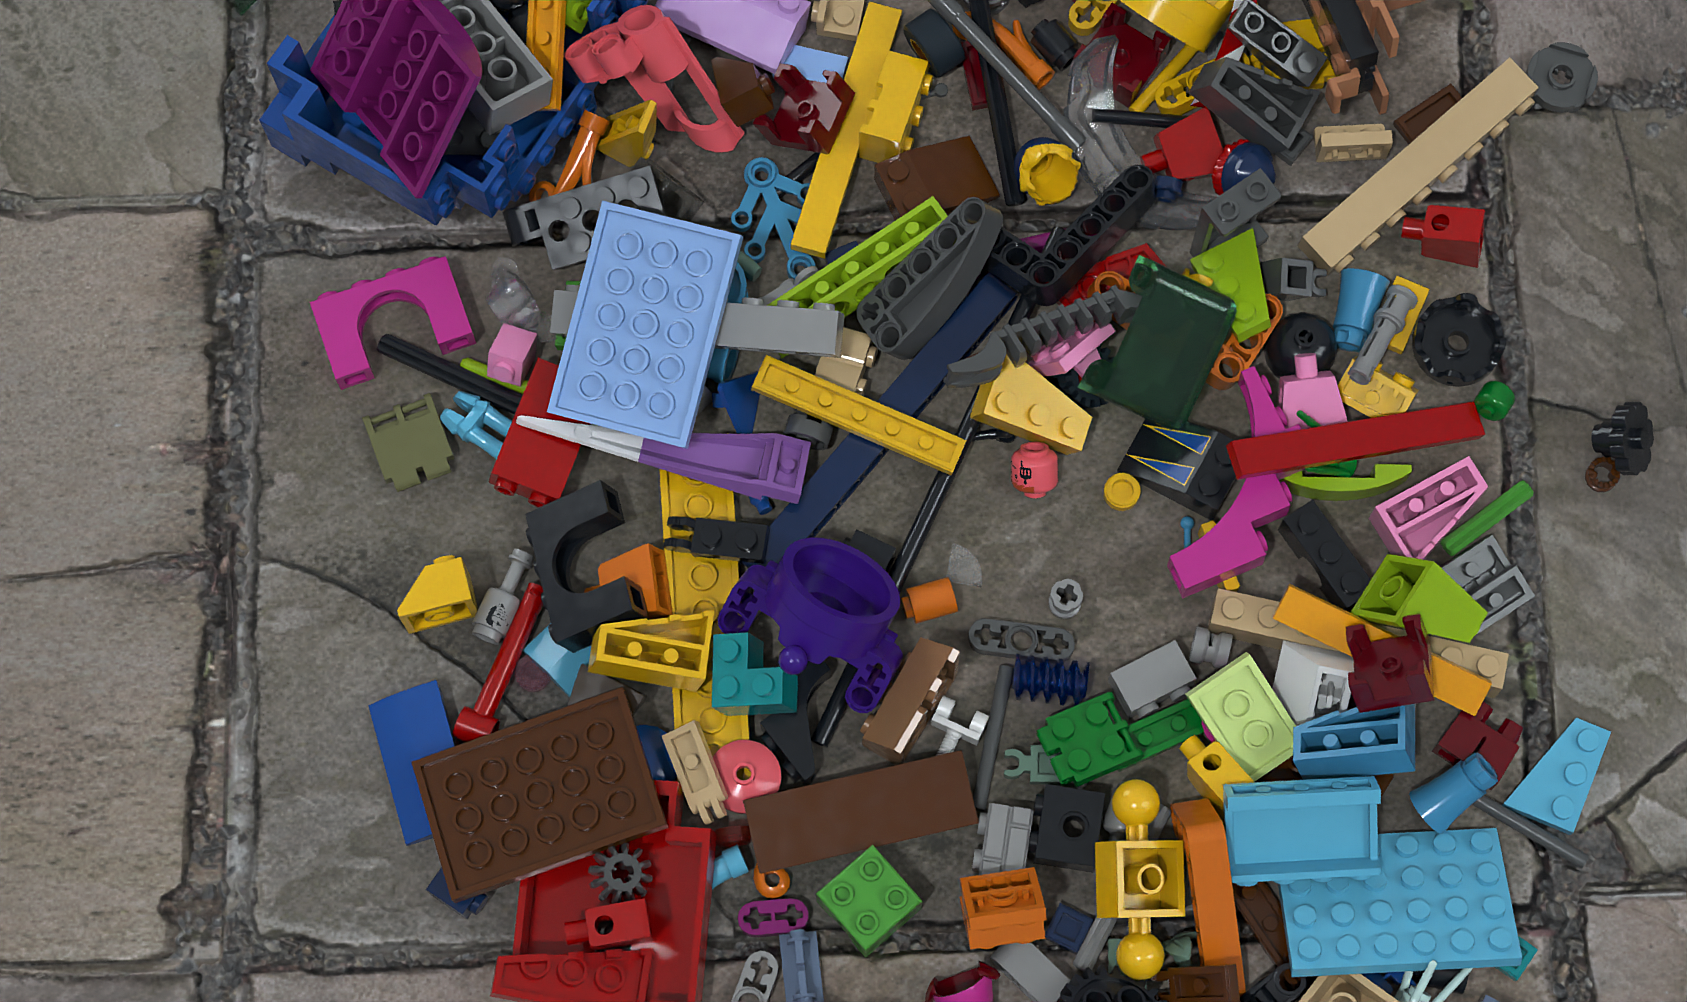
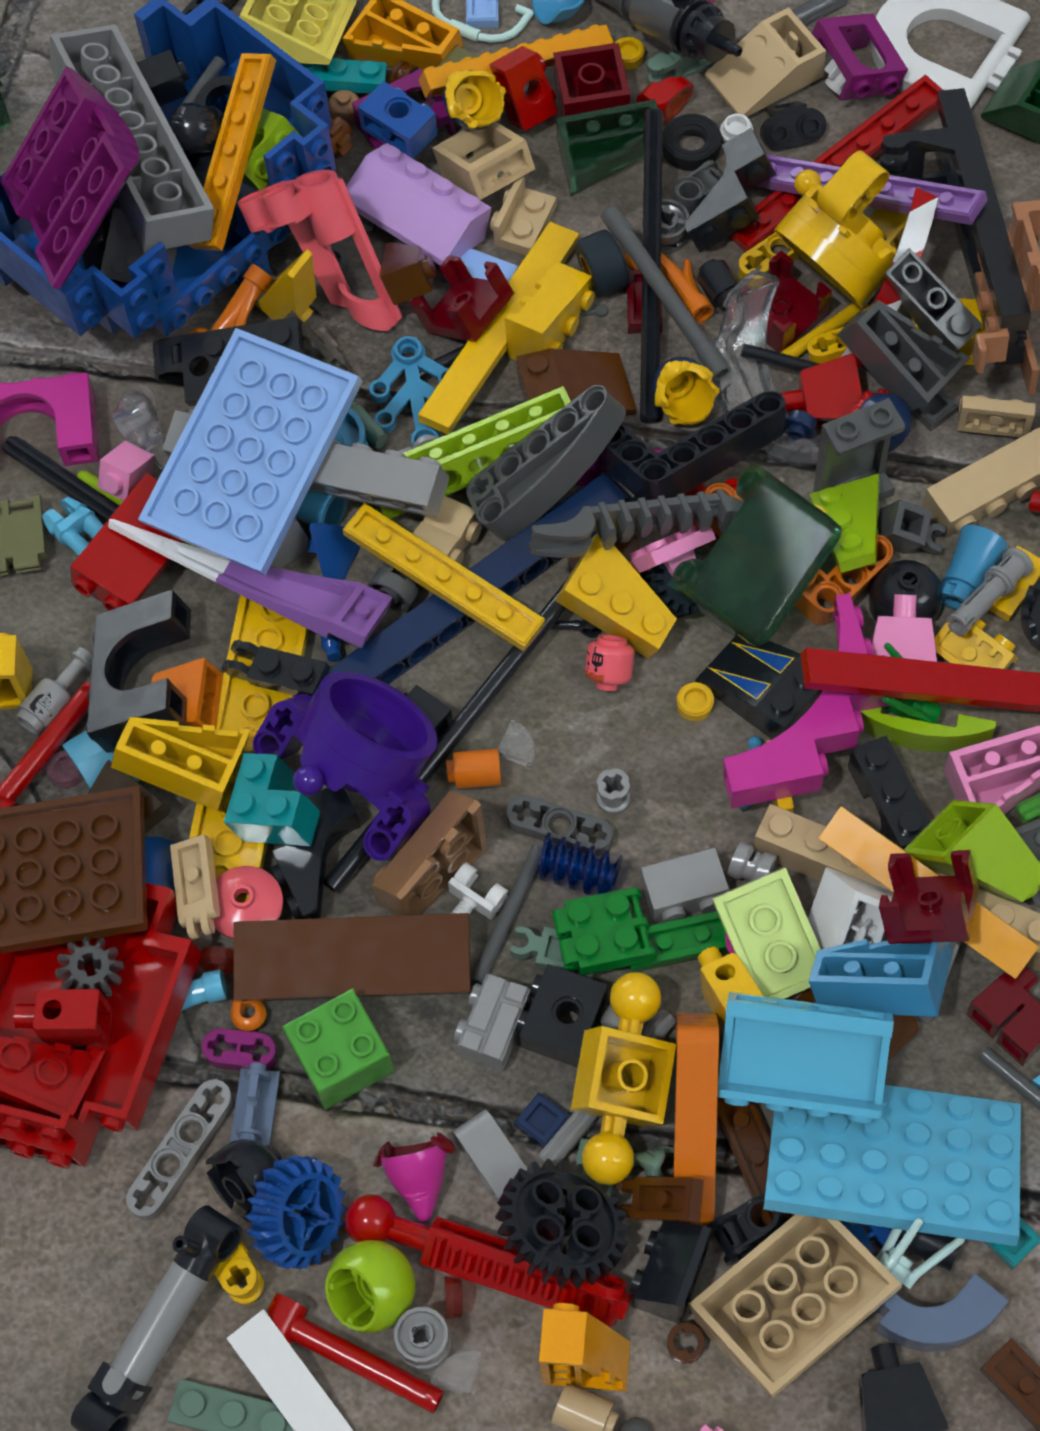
camera: 15 degrees right, 10 degrees down
(1002, 908) = (470, 1078): orange bracket -> none
(1453, 791) = (978, 1053): dark azure plant -> none

